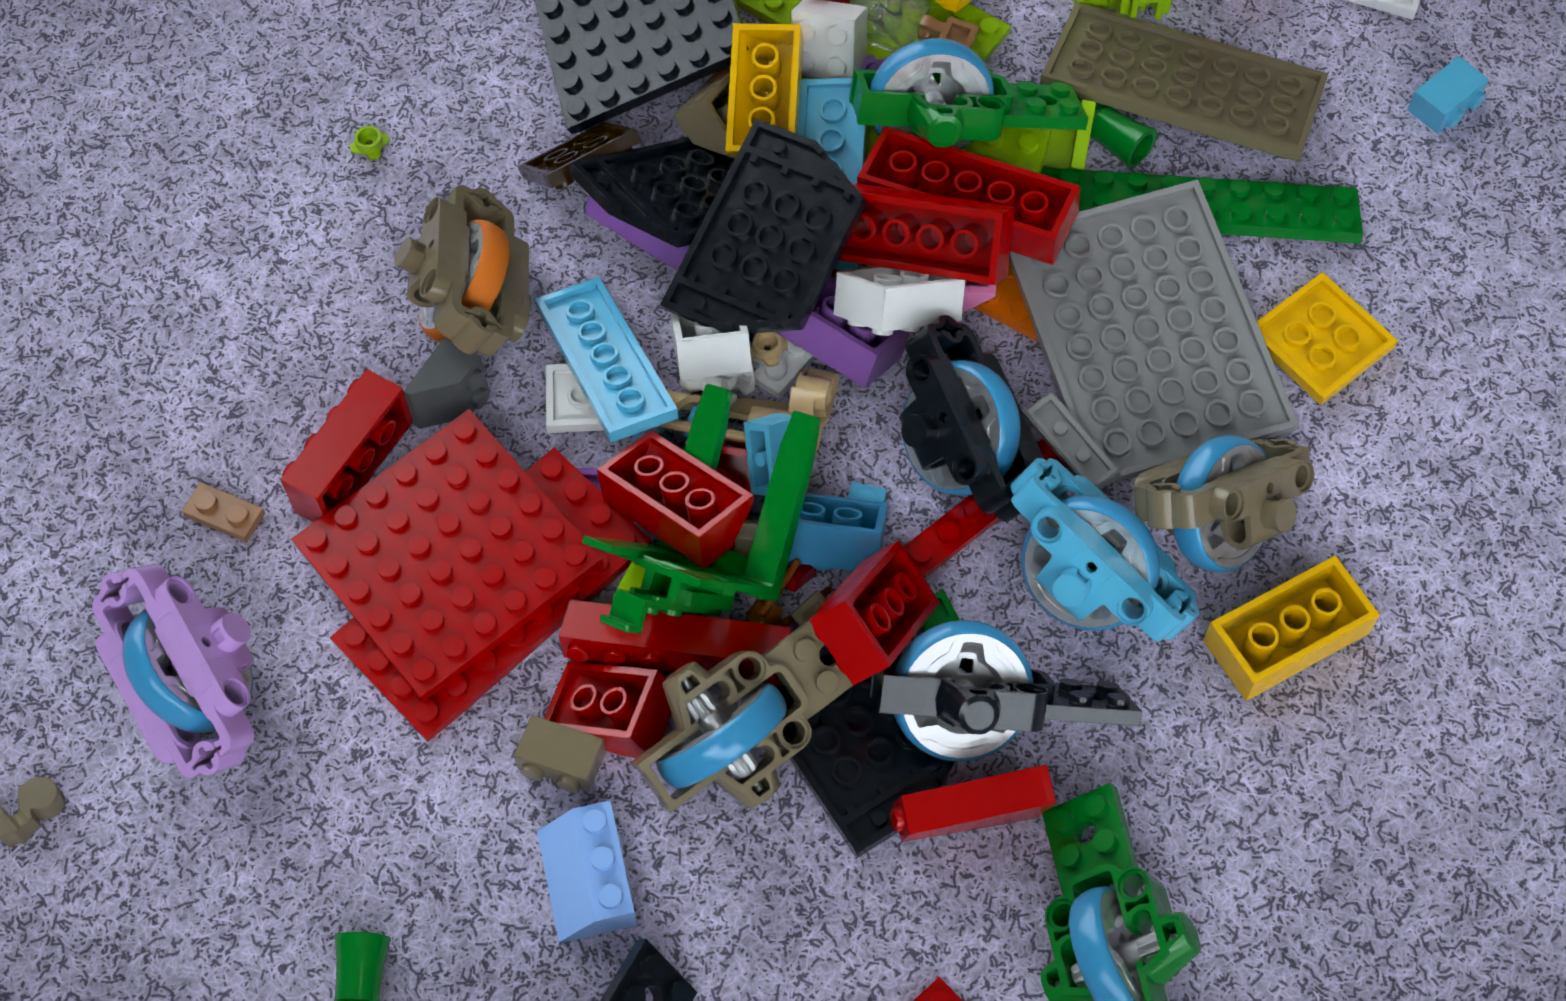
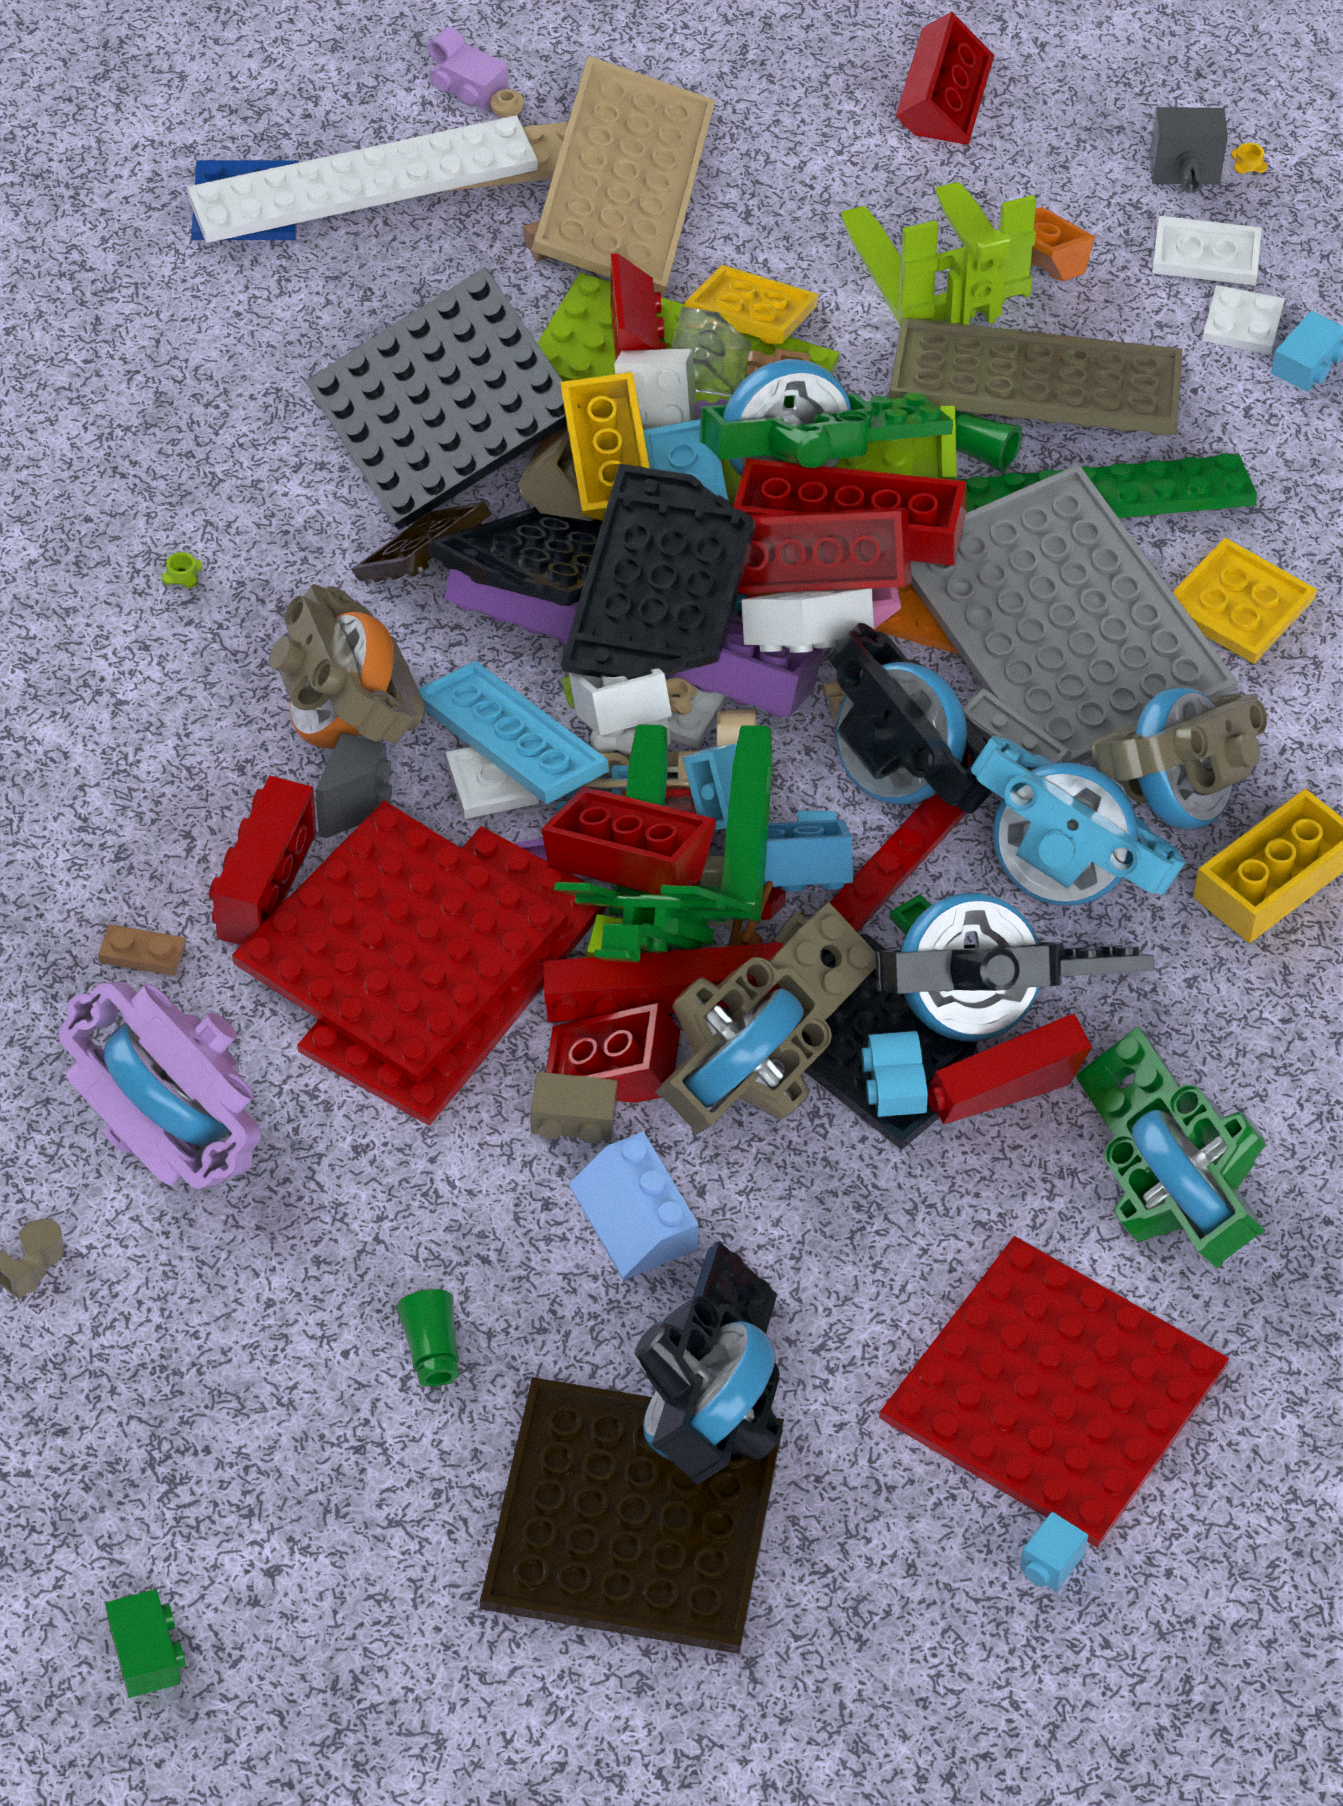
camera: 15 degrees left, 10 degrees down
(865, 785) = (896, 1074): none -> medium azure brick
(874, 613) = (868, 904): red brick -> none
(1393, 52) = (1243, 319): none -> white plate

